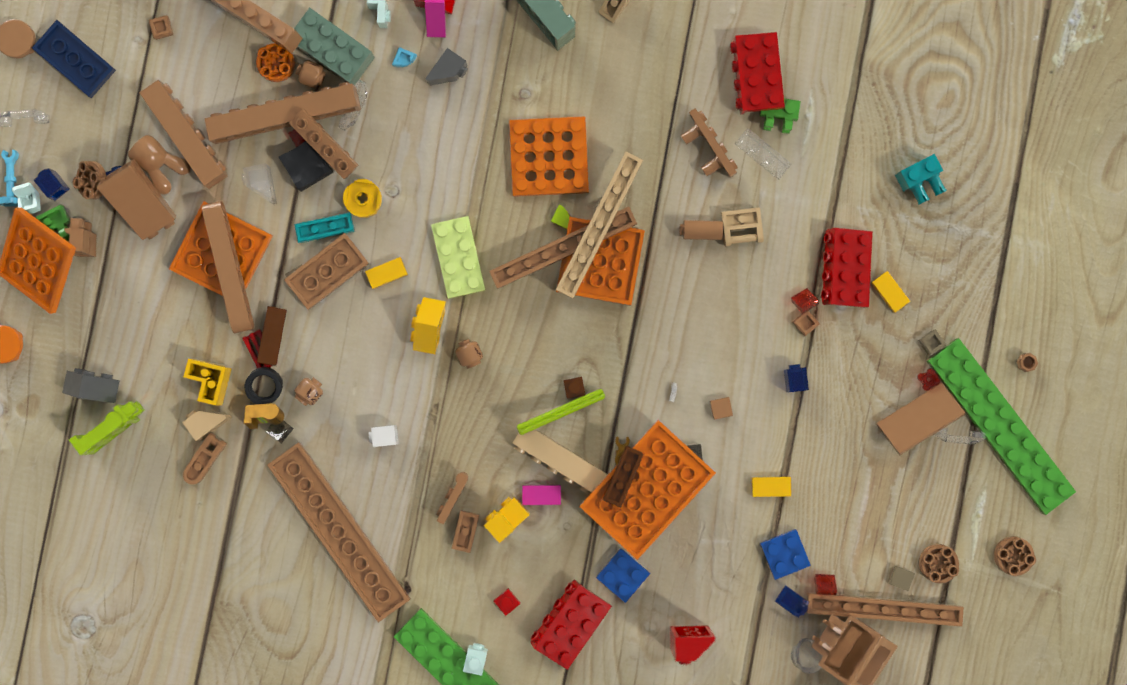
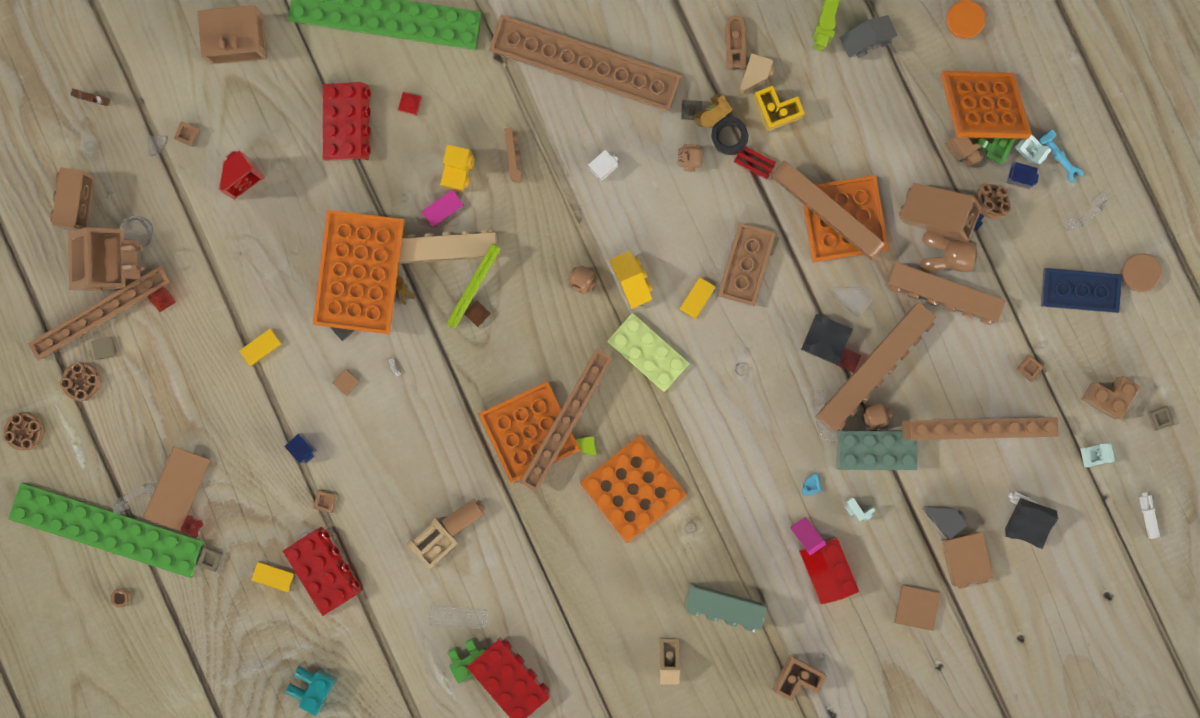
camera: 145 degrees right, 0 degrees up
(272, 336) = (752, 180): reddish brown tile -> none
(275, 63) = (914, 404): orange tile -> none
(323, 144) = (822, 365): medium nougat plate -> none
(324, 228) = (775, 299): teal tile -> none
(355, 190) = (763, 334): yellow plate -> none
(447, 69) = (768, 501): dark grey slope -> none
(465, 531) = (483, 135): medium nougat plate -> none
(475, 659) = (402, 40): light aqua bracket -> none
(599, 225) = (549, 458): tan plate -> none
(623, 476) = (385, 268): reddish brown tile -> none
(623, 575) = (331, 191): blue plate -> none
(709, 134) = (489, 586): medium nougat plate -> none
(785, 554) = (211, 300): blue plate -> none
(792, 602) = (178, 265): clear blue brick -> none
(804, 300) = (338, 518): clear red plate -> none

